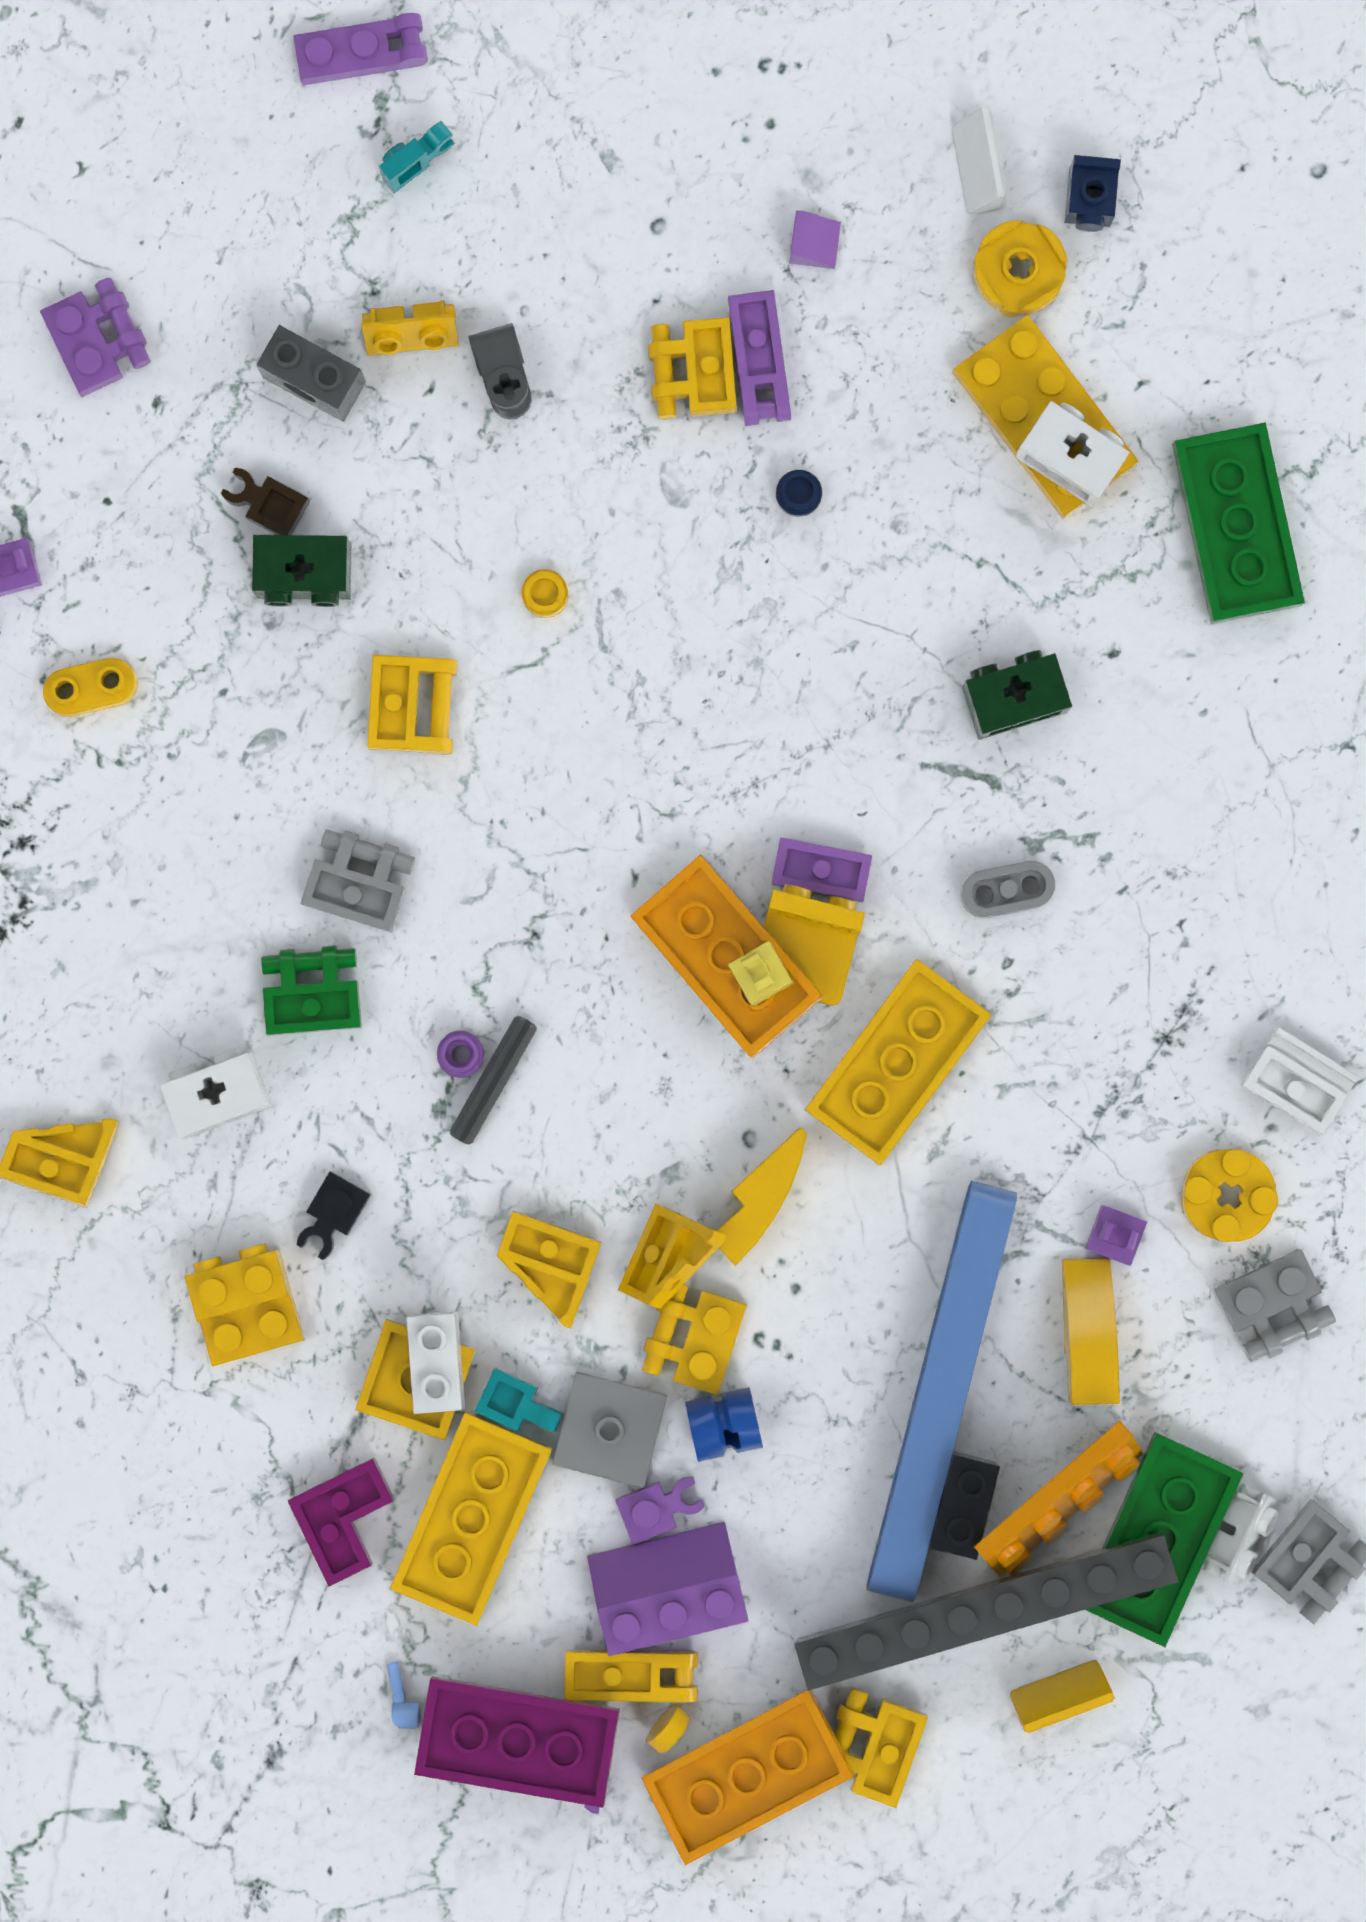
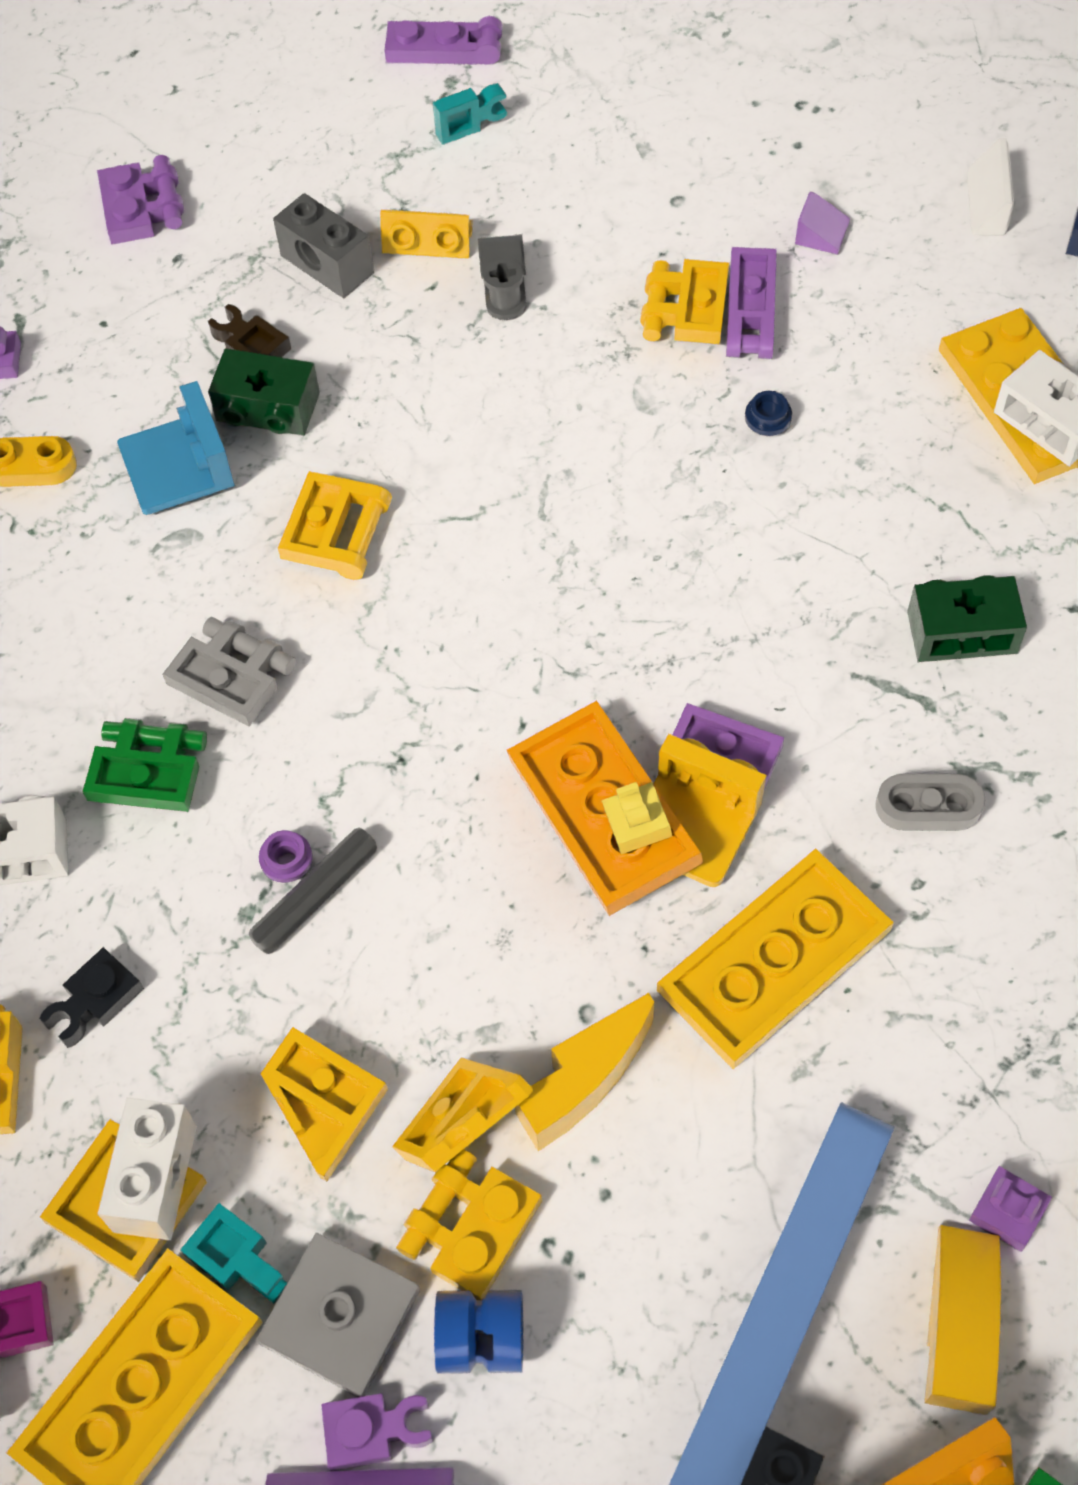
camera: 15 degrees right, 25 degrees down
(236, 661) = (178, 457): none -> dark azure bracket
(544, 593) = (495, 458): yellow tile -> none
(1025, 242) = (1009, 291): yellow plate -> none

